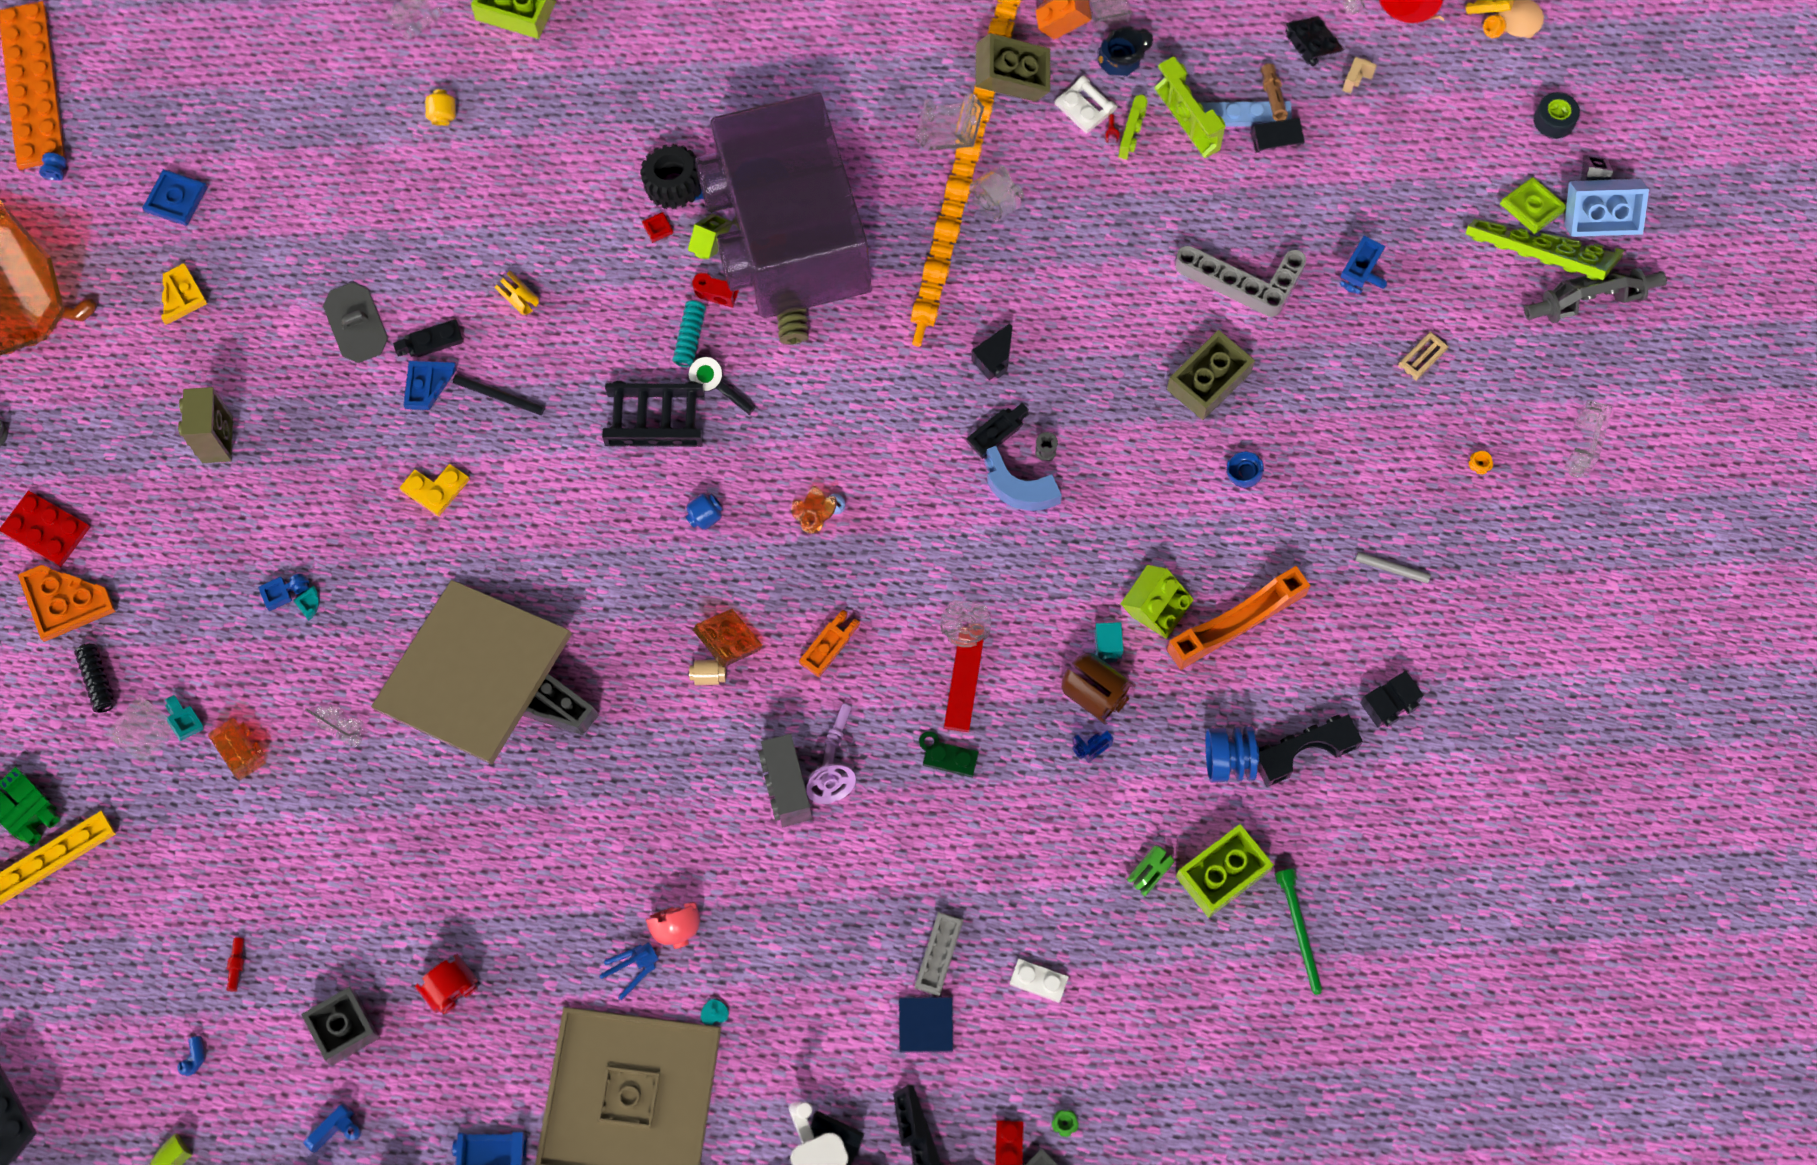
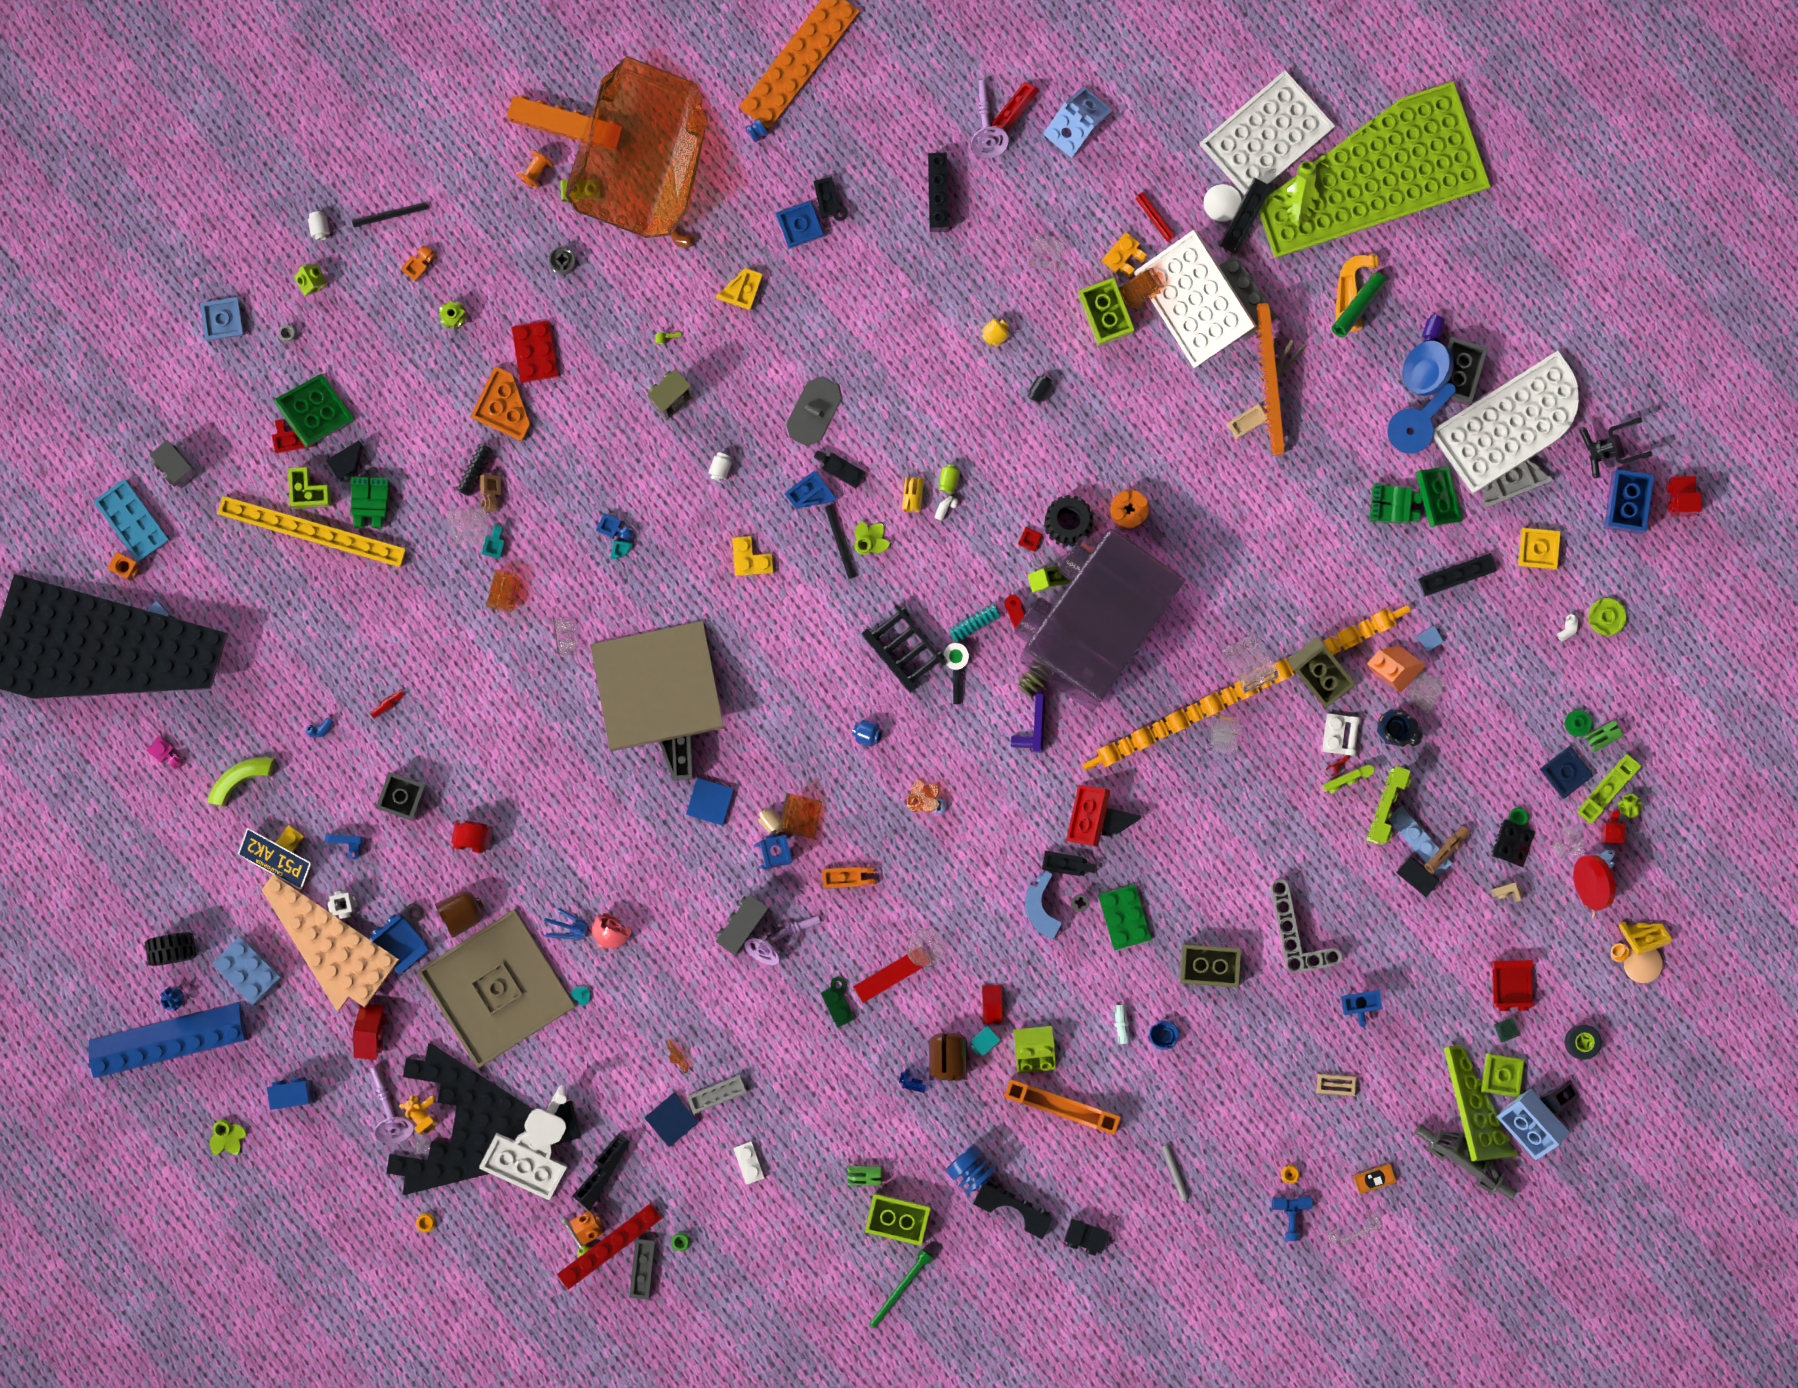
camera: 50 degrees right, 15 degrees up
(128, 675) = (490, 486): none -> medium nougat plate
(149, 401) = (660, 337): none -> lime hand
(177, 156) = (827, 199): none -> black hinge
(267, 58) = (938, 192): none -> black brick
(322, 443) = (720, 467): none -> white brick
(463, 1119) = (409, 908): none -> clear smoke plate
(514, 1065) = (460, 912): none -> reddish brown cylinder
(522, 362) = (872, 536): none -> lime plate
(528, 111) = (1040, 389): none -> black brick
(533, 251) = (949, 479): none -> lime brick
(555, 277) = (944, 505): none -> white arm
(634, 718) = (709, 801): none -> blue tile
(702, 111) = (1119, 514): none -> orange brick
(749, 695) = (770, 860): none -> blue piece
(853, 363) = (1036, 741): none -> dark purple piece
(864, 964) = (676, 1056): none -> clear orange piece
(967, 371) = (1088, 815): none -> red plate
(1077, 606) = (992, 1004): none -> red slope
(1095, 420) = (1124, 917): none -> green plate
(1200, 501) = (1122, 1024): none -> light aqua pin
(1292, 14) = (1518, 816): none -> green tile
(1449, 134) = (1512, 984): none -> red panel
(1491, 170) = (1506, 1030): none -> clear green plate
(1517, 485) = (1292, 1207): none -> blue bar
(1546, 391) = (1374, 1178): none -> tile

